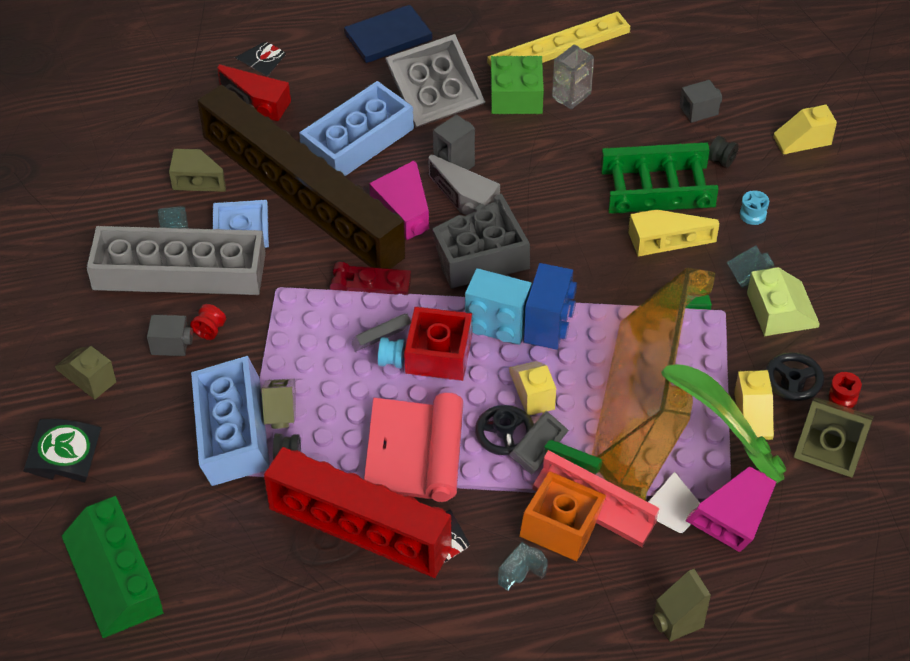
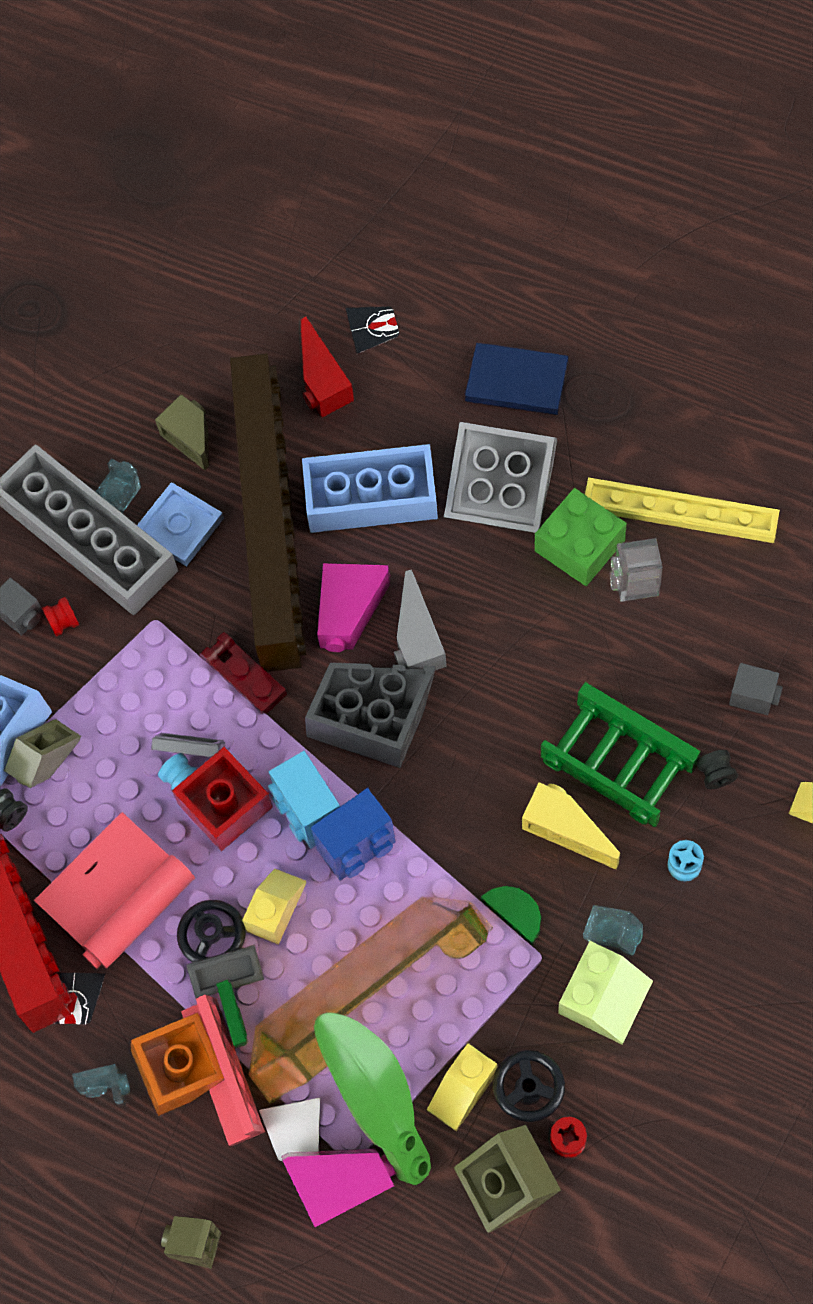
camera: 45 degrees right, 15 degrees up
(455, 142) = (442, 576): dark grey brick -> none

